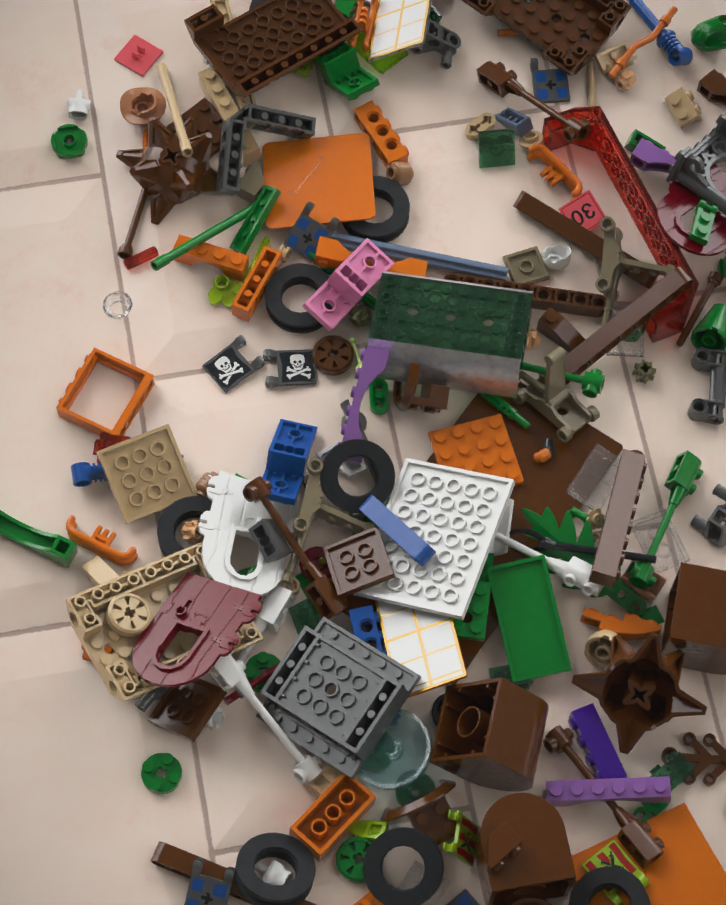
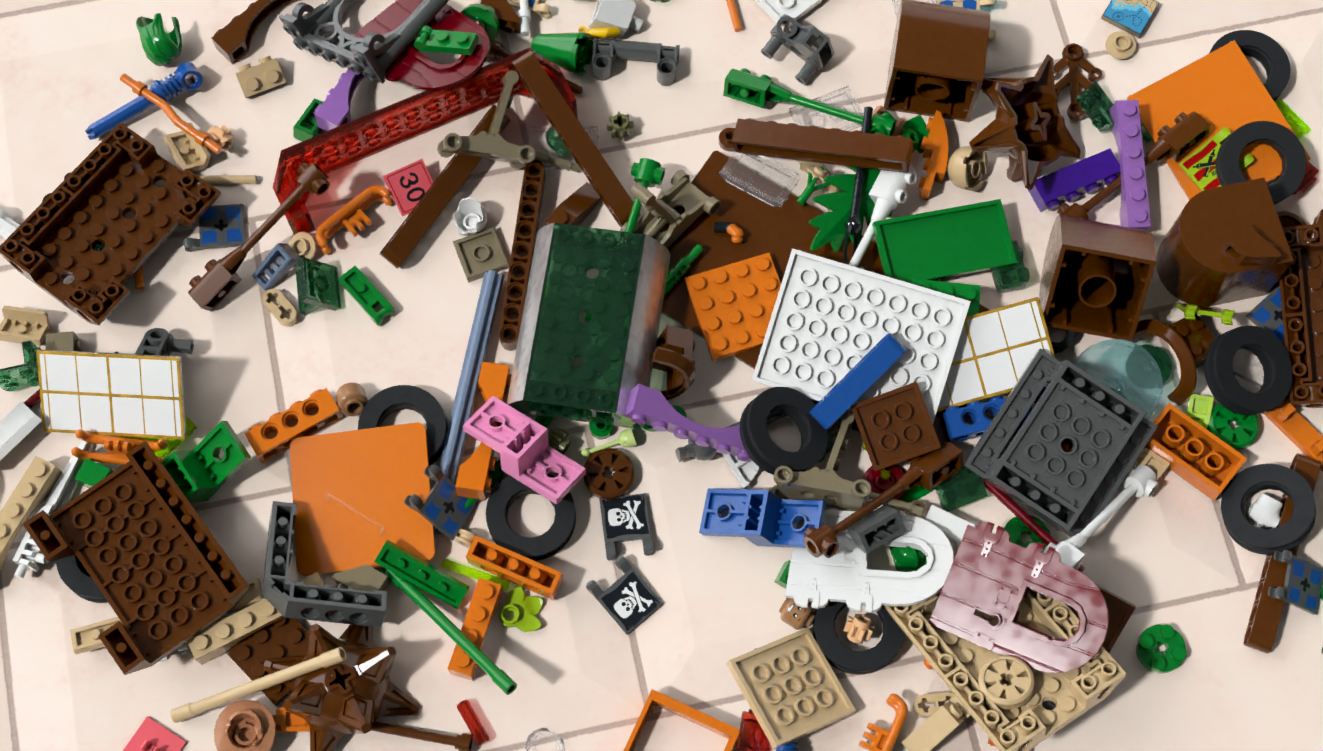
camera: 90 degrees left, 5 degrees up
(489, 184) = (366, 295): none -> green plate

